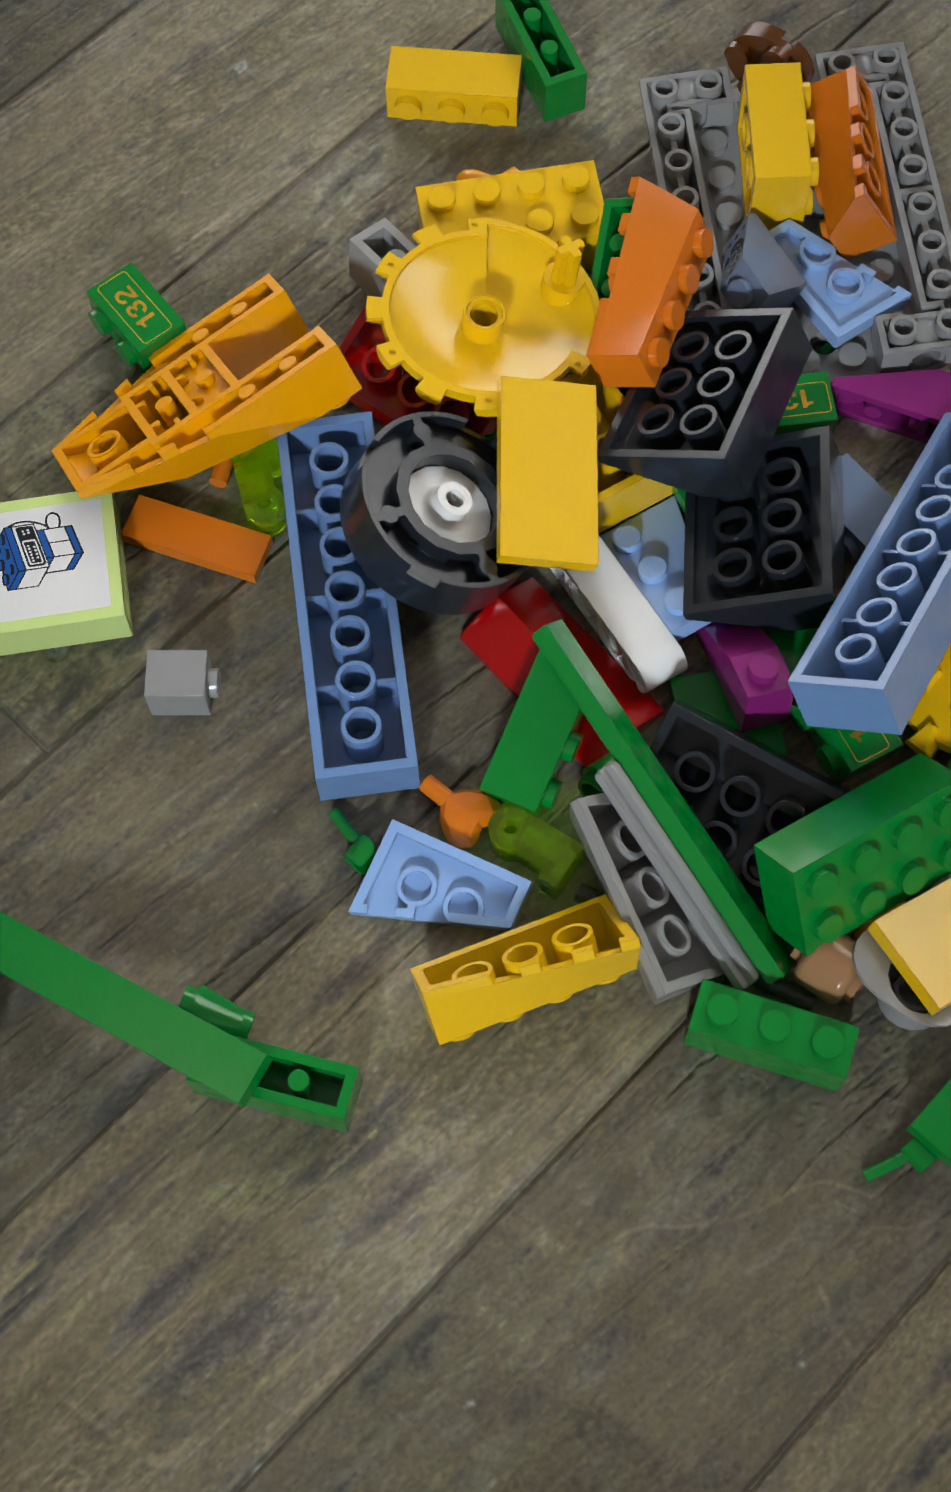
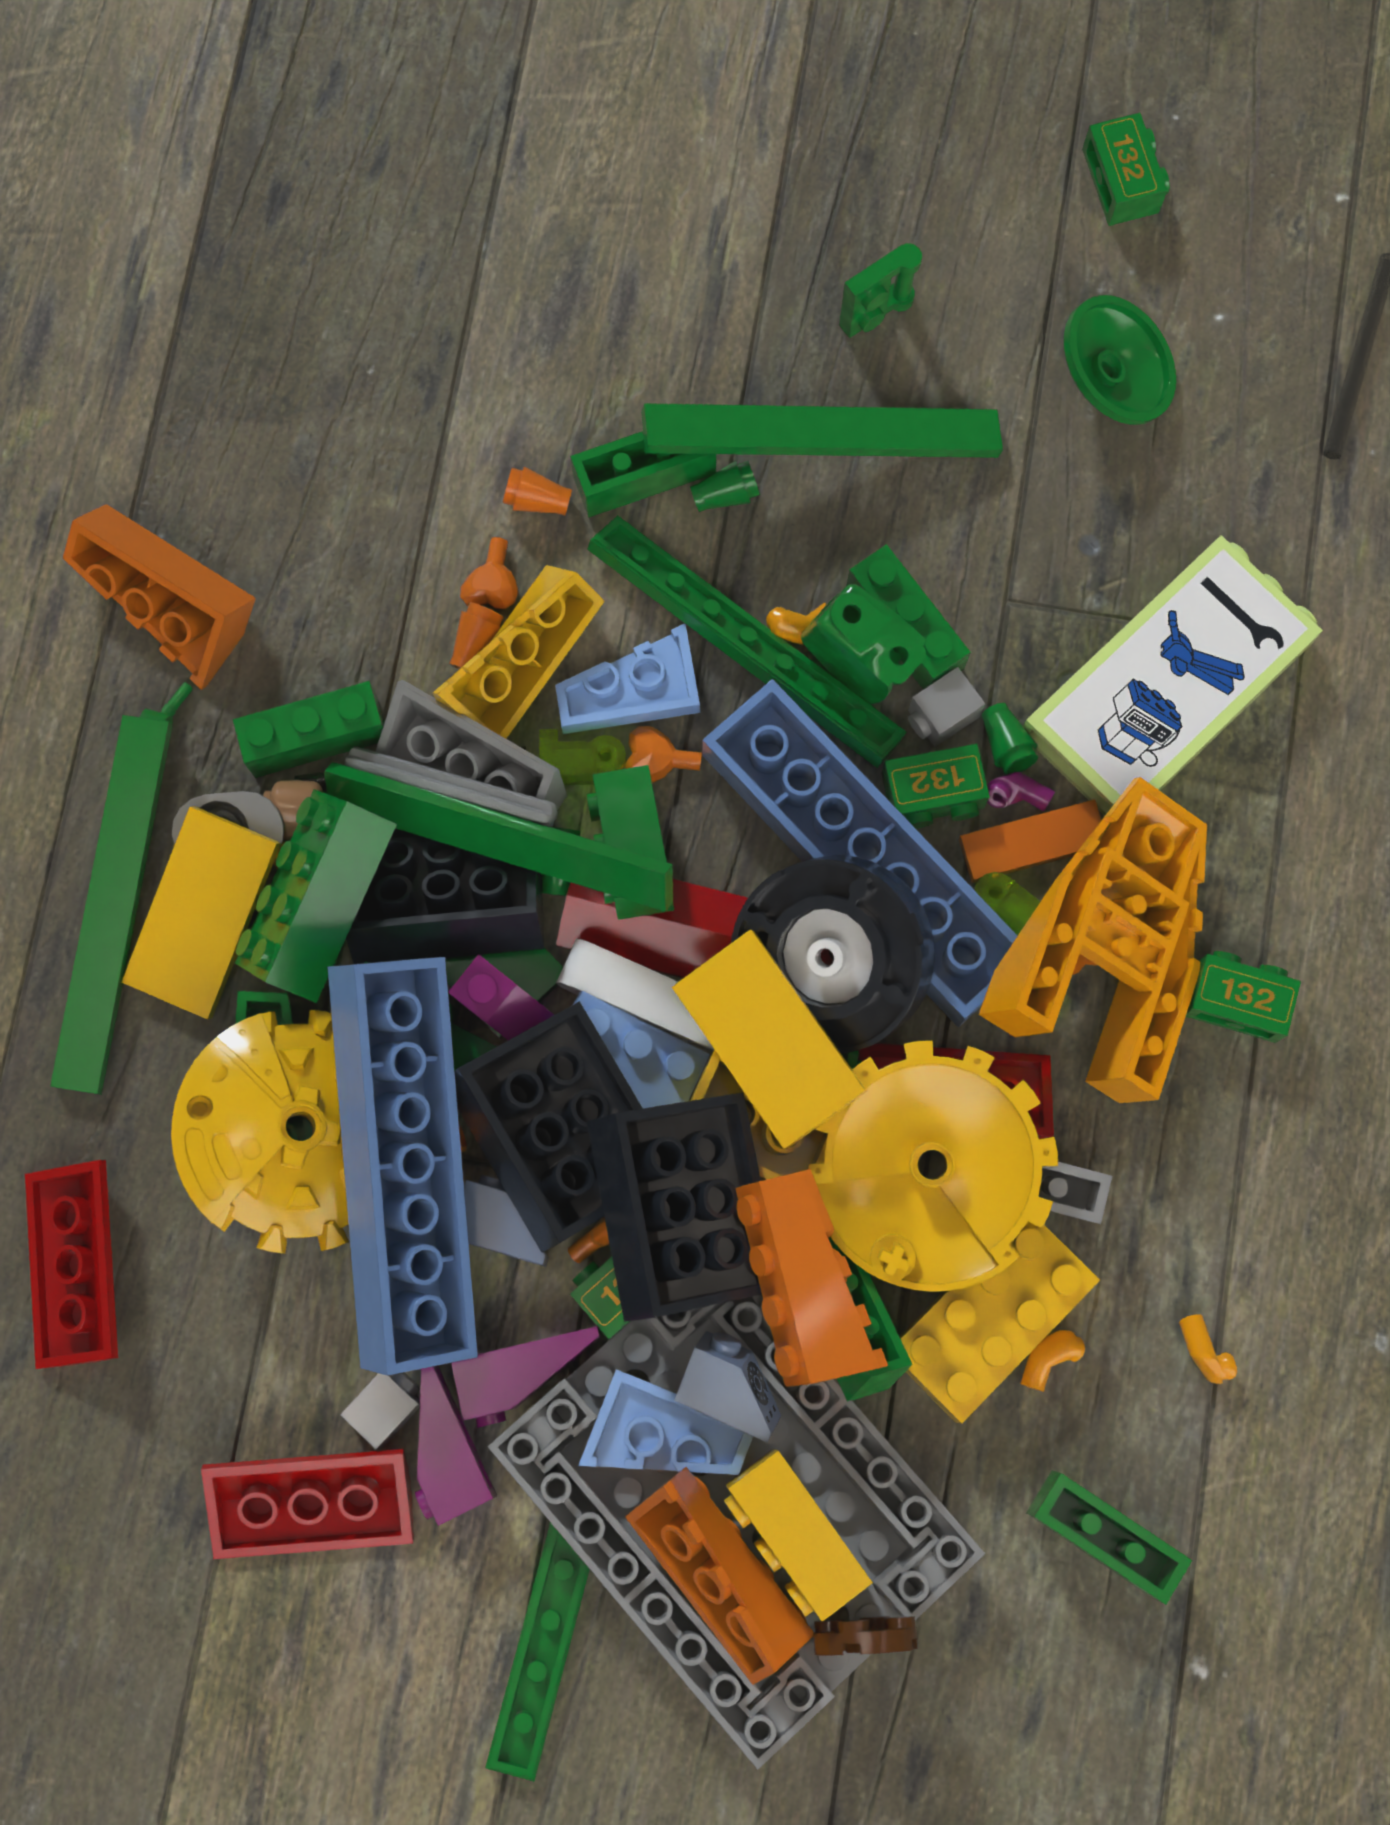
camera: 145 degrees right, 10 degrees up
(149, 623) = (1009, 741): none -> green cone
(150, 776) = (894, 586): none -> green brick
(175, 588) = (1016, 788): none -> magenta arm
(211, 755) = (857, 641): none -> green piece
(242, 624) = (937, 785): none -> green brick
(248, 840) = (790, 624): none -> light orange arm
(307, 868) = (746, 640): none -> green tile
(362, 849) = (708, 678): green hand -> none
(374, 117) = (1202, 1351): none -> light orange arm
(400, 1139) = (535, 493): none -> orange cone
(453, 86) = (1159, 1441): yellow brick -> none
(499, 1078) = (492, 581): none -> orange rock
(551, 1029) = (474, 632): none -> orange cone
(839, 1288) = (161, 589): none -> orange wedge

